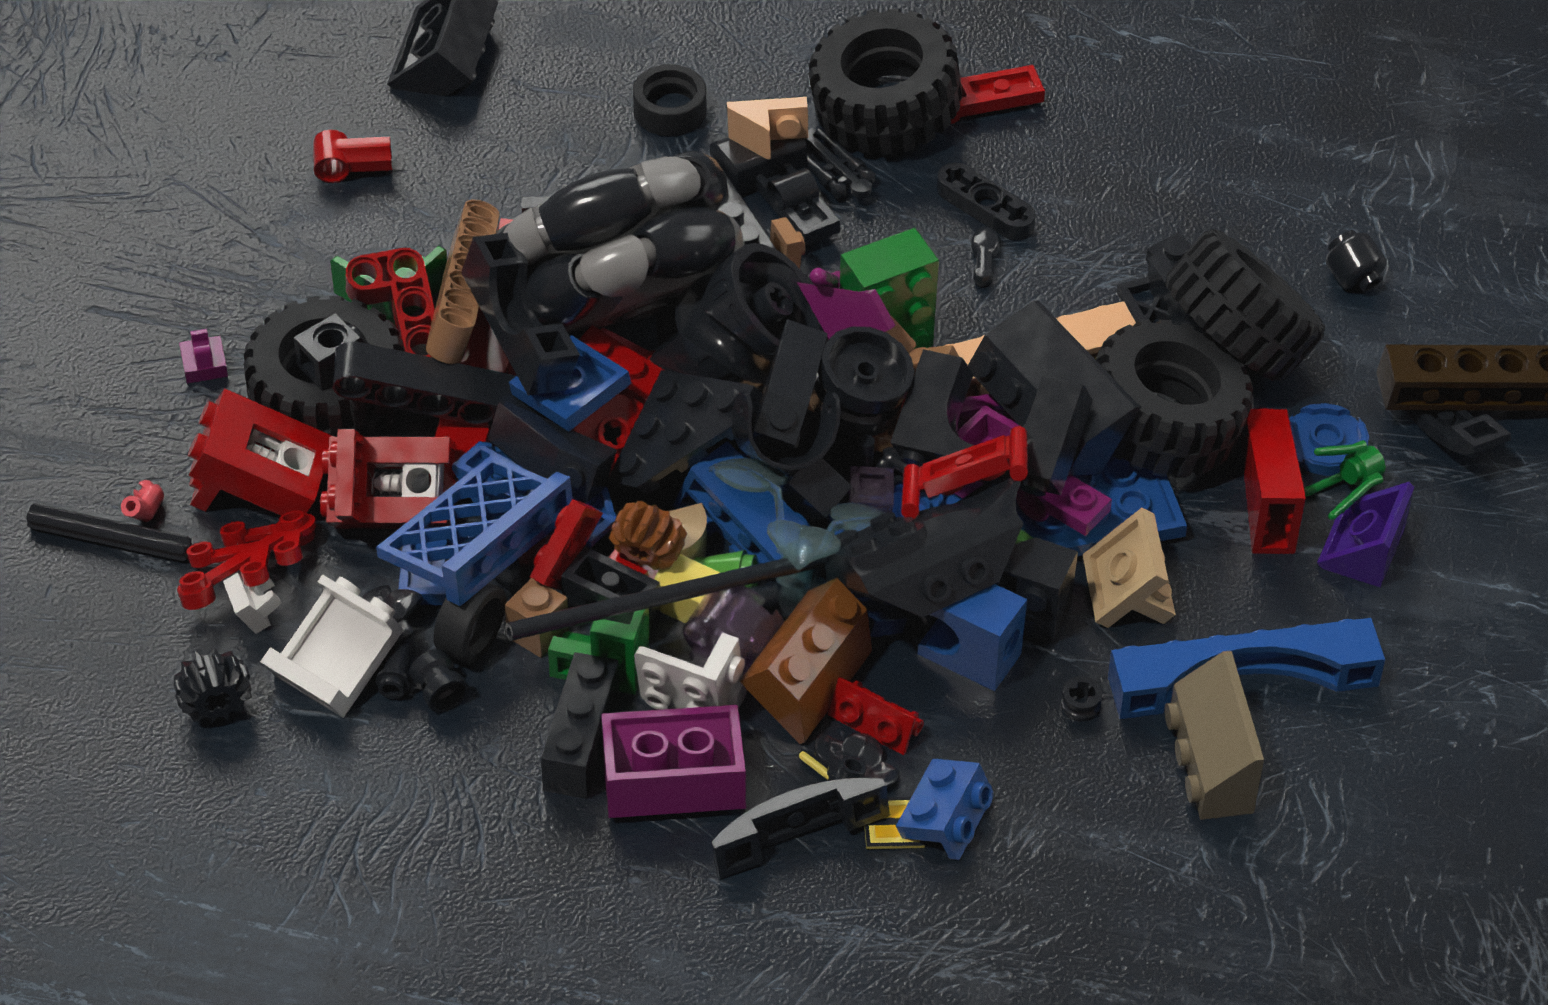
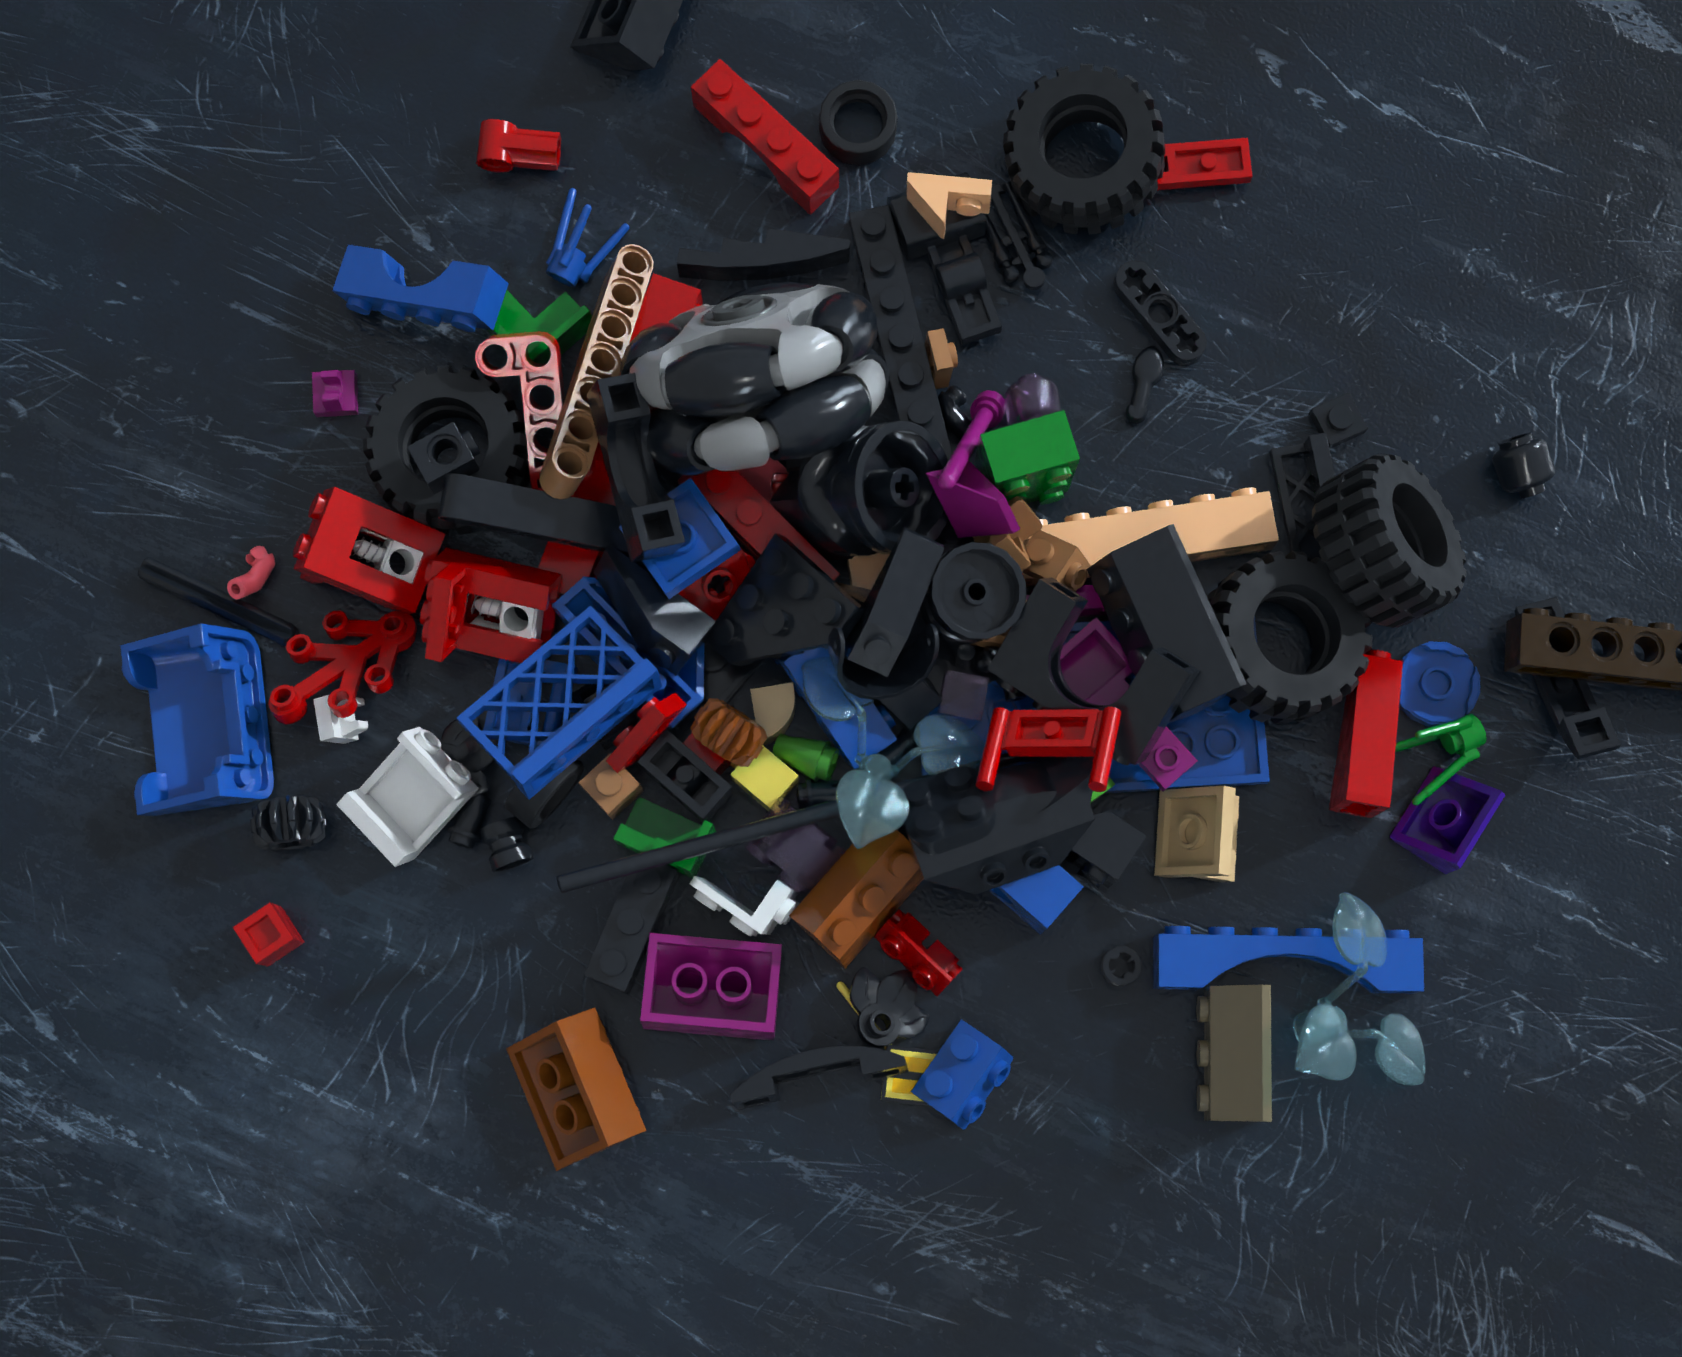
camera: 10 degrees right, 30 degrees up
(104, 616) = (203, 719): none -> blue windscreen
(208, 783) = (268, 934): none -> red panel
(316, 248) = (462, 295): none -> blue arch
(417, 230) = (566, 261): none -> blue plant
(548, 873) = (575, 1088): none -> dark orange slope
(621, 130) = (789, 155): none -> red arch
(1307, 687) = (1322, 1032): none -> clear light blue plant

